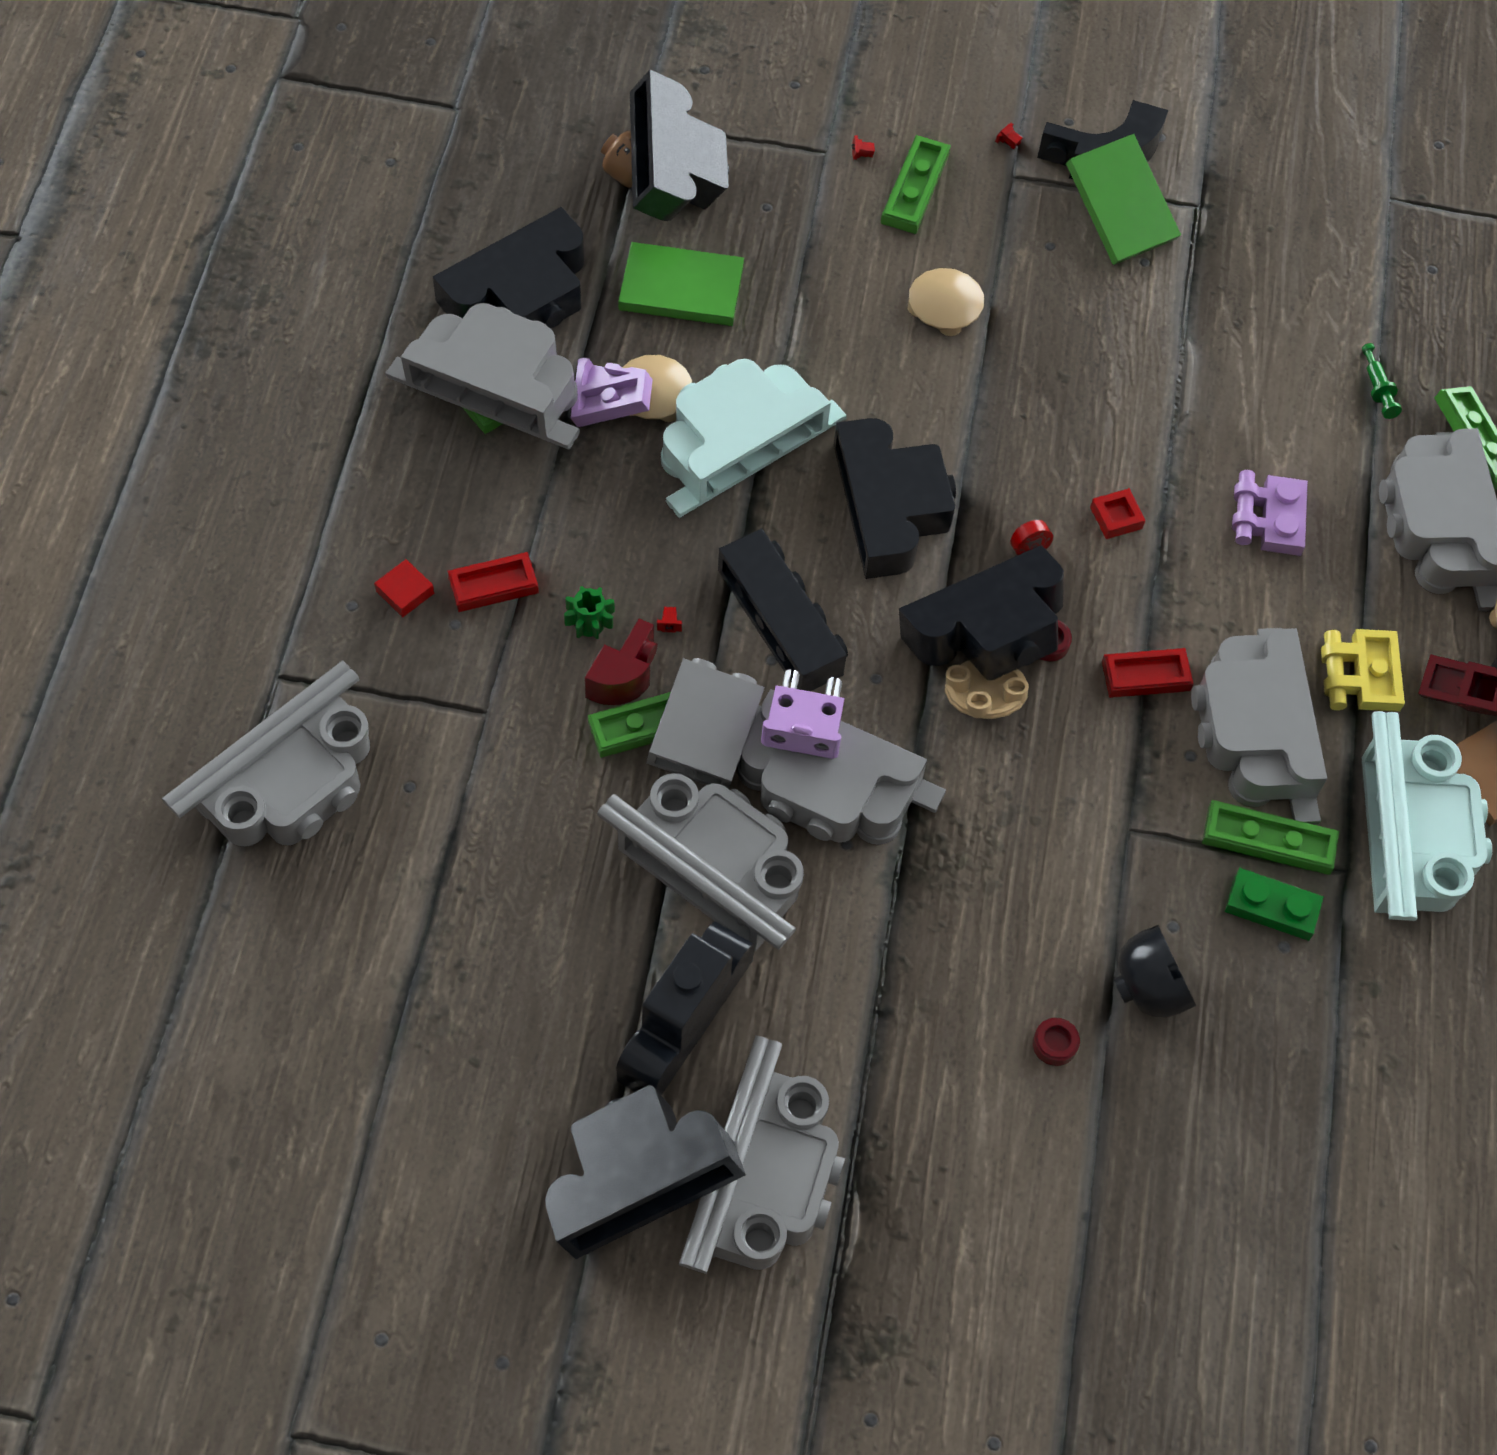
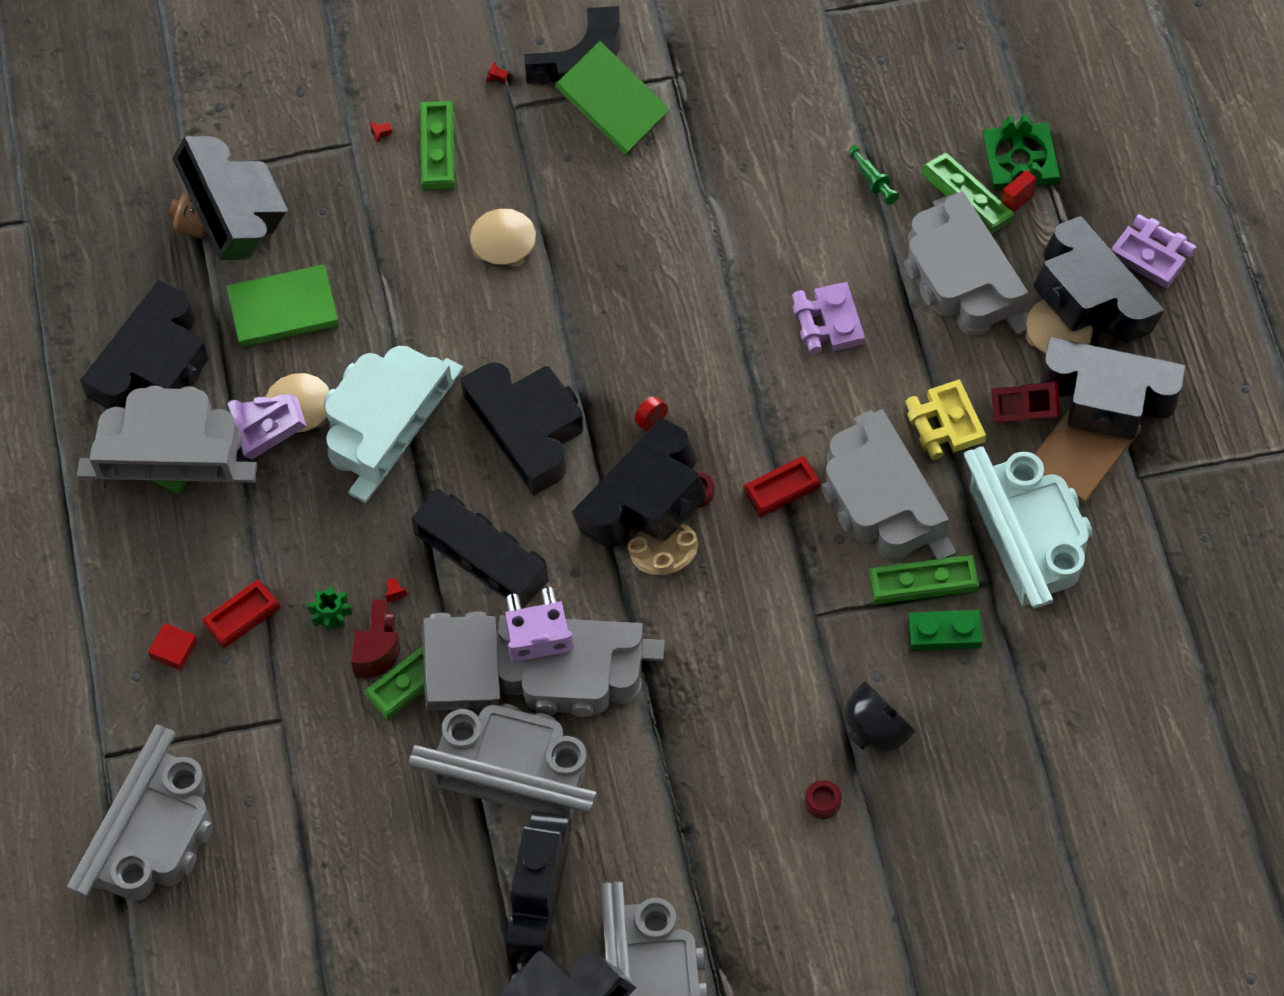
camera: 15 degrees left, 0 degrees up
(1117, 513) = (709, 365): red tile -> none

